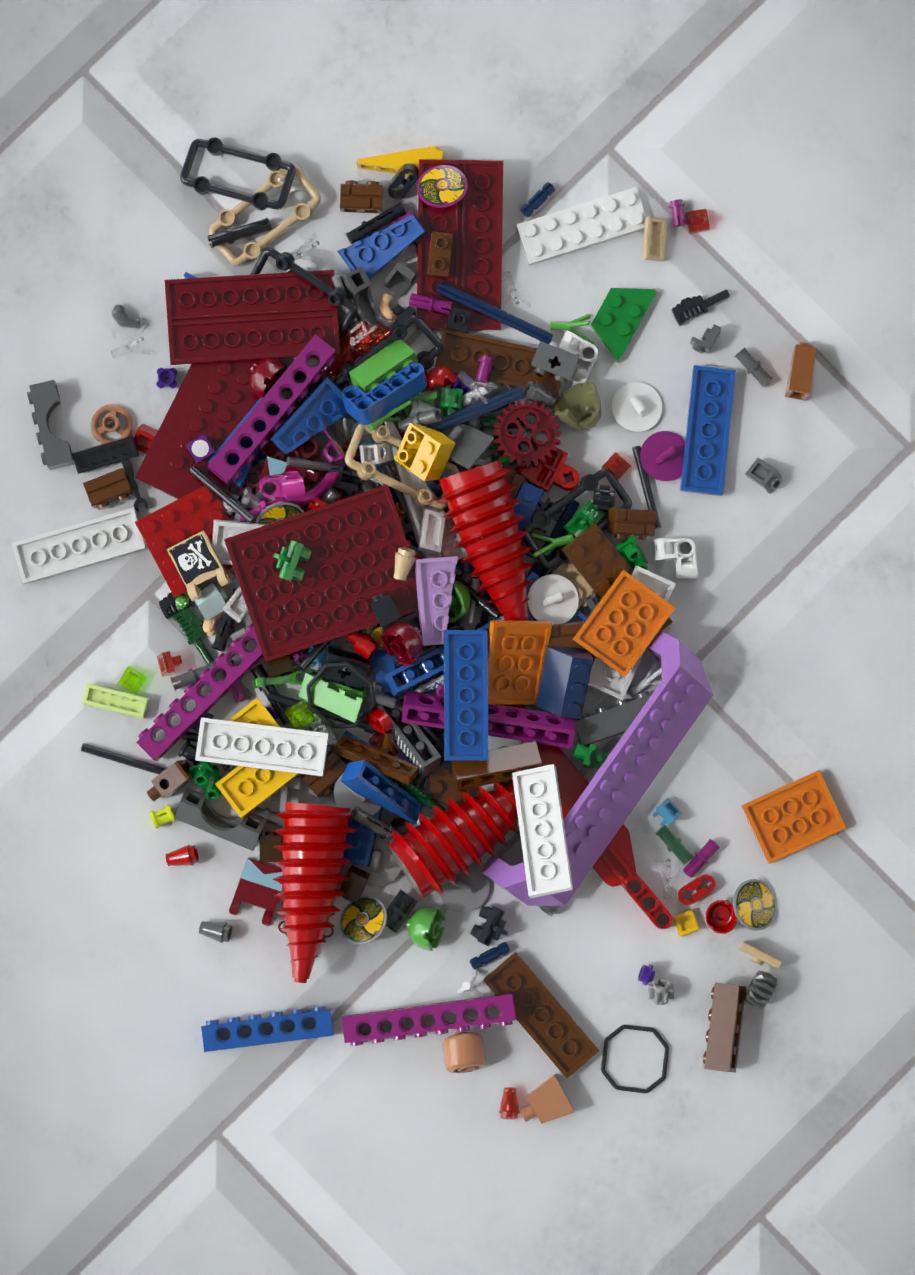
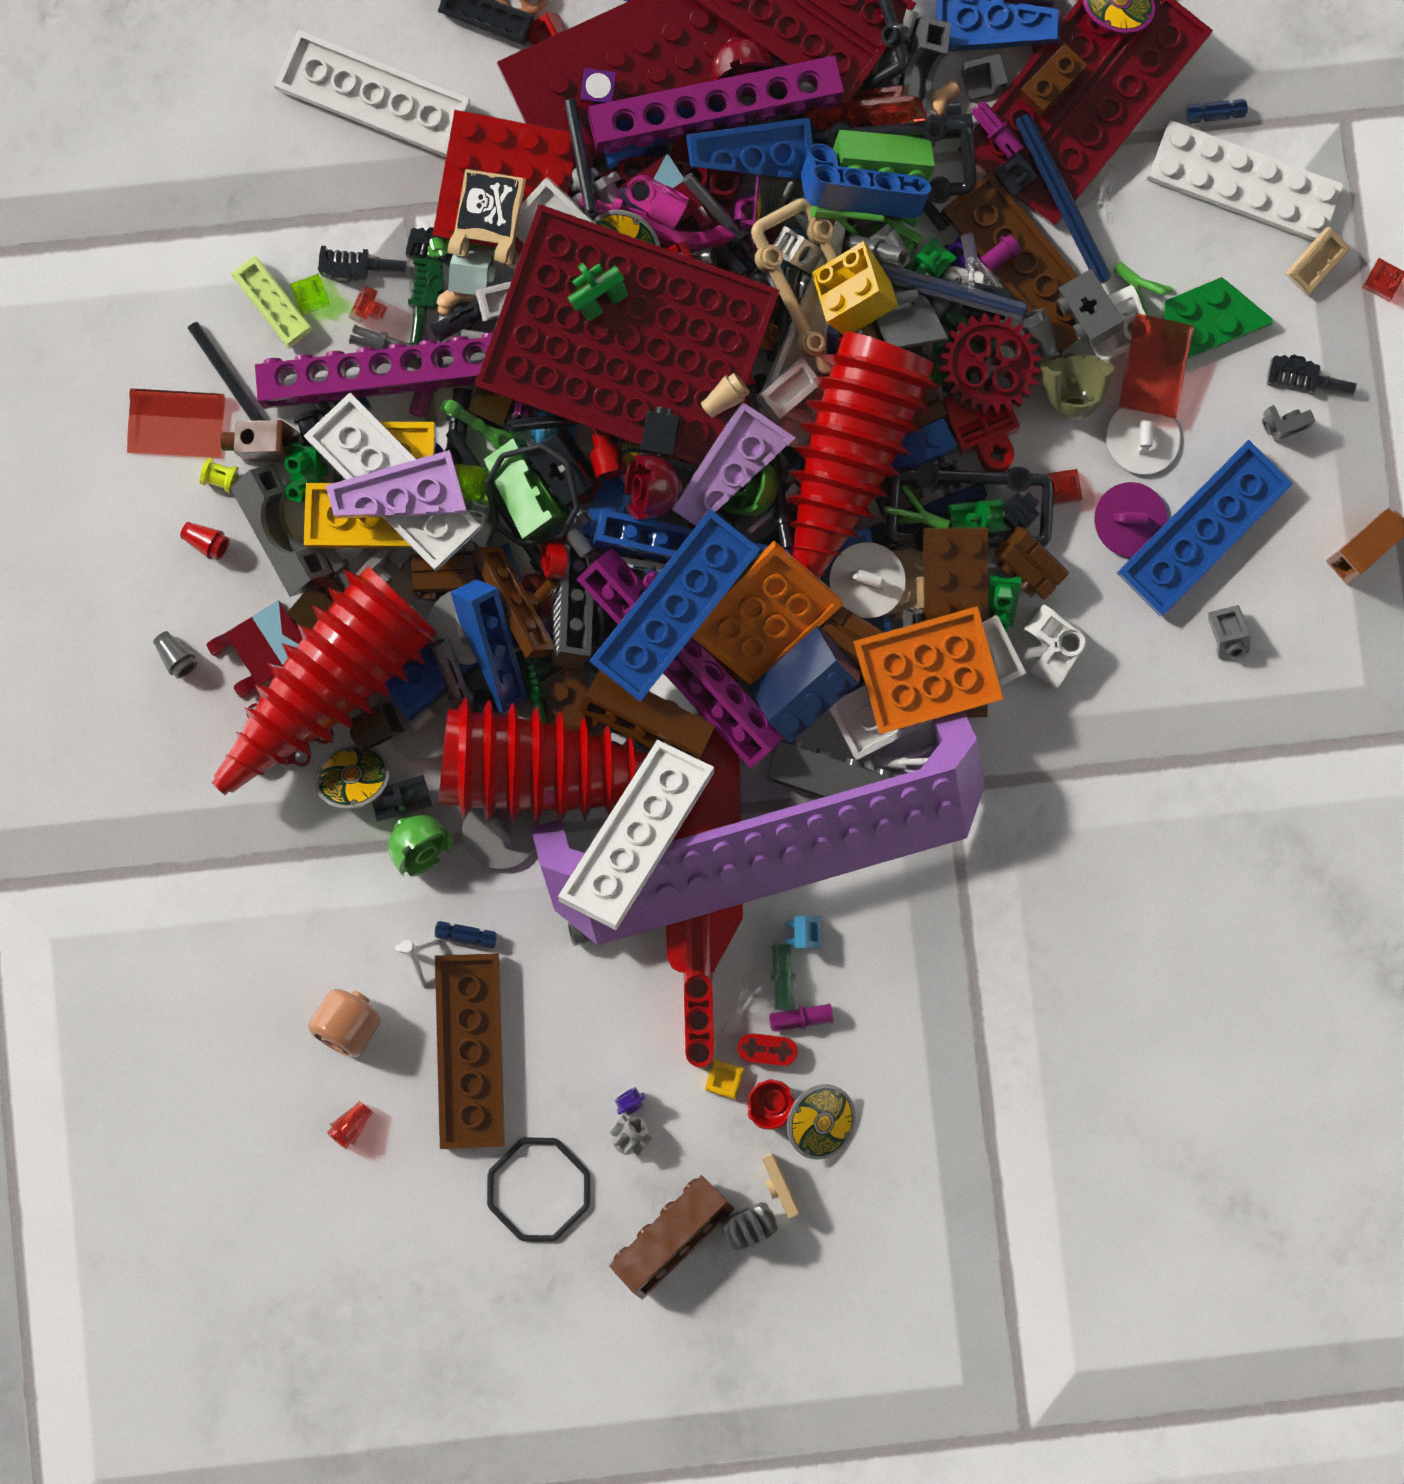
camera: 30 degrees right, 0 degrees up
(108, 489) = (457, 55): reddish brown brick -> none
(115, 806) = (175, 422): none -> clear red piece
(128, 468) = (499, 52): black piece -> none
(144, 645) = (353, 265): none -> black piece
(213, 1042) = (68, 777): blue brick -> none
(273, 746) = (405, 489): none -> lavender wing
(354, 1036) = (243, 886): magenta brick -> none
(441, 376) = (942, 221): red hair -> none
(493, 926) = (494, 904): black hips -> none
(547, 1102) = (395, 1158): nougat torso -> none
(590, 755) = (765, 793): green hips -> none
(614, 364) = (1156, 366): none -> clear red piece
(646, 485) = (1081, 536): black bar -> none
(678, 212) = (1369, 250): magenta pin -> none
(753, 367) = (1316, 497): dark grey pin -> none
(793, 817) = (948, 1055): orange plate -> none

